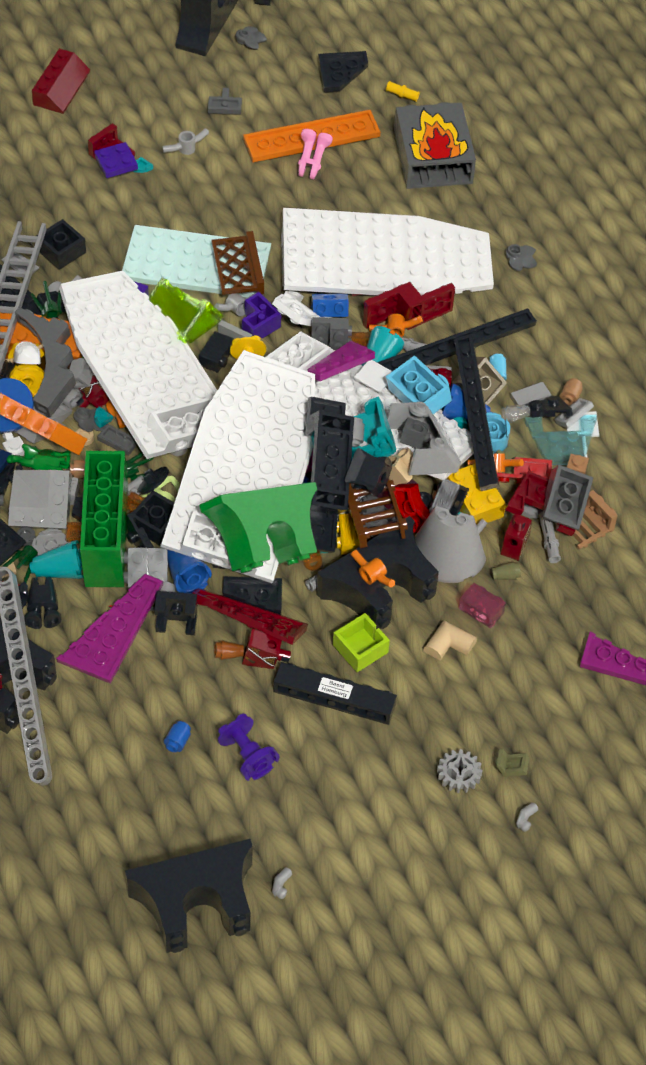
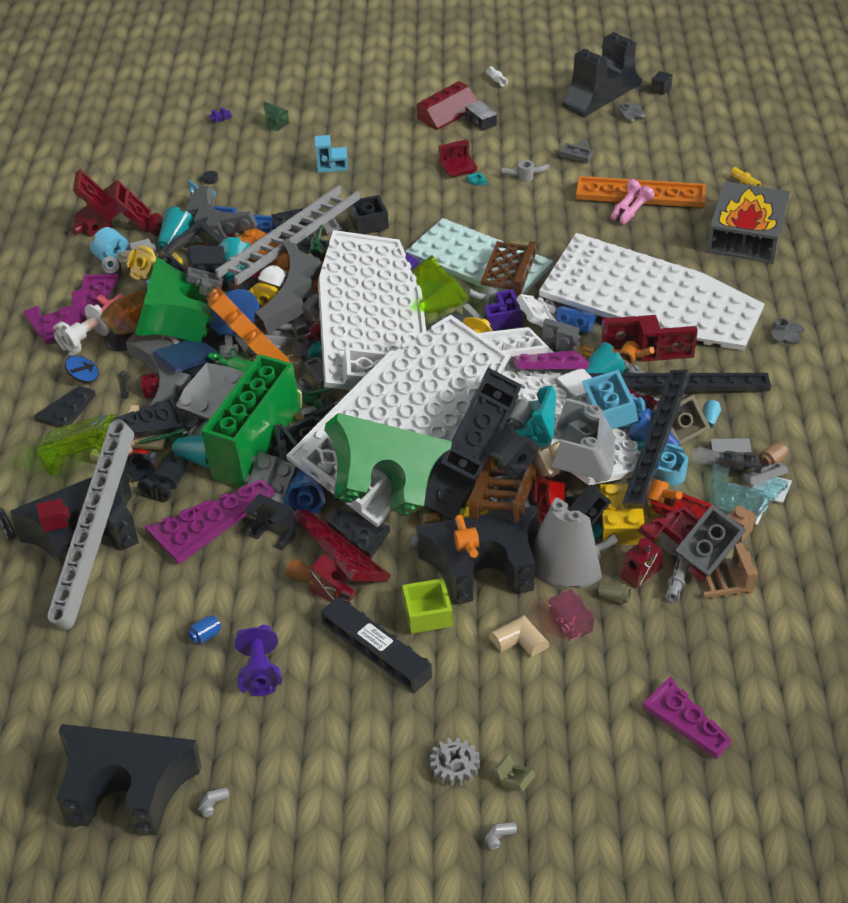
camera: 30 degrees right, 10 degrees down
(89, 27) = (497, 76): none -> white pin
(102, 84) = (481, 115): none -> black brick
(116, 160) = (456, 168): dark purple plate -> none
(341, 68) = (697, 150): black plate -> none

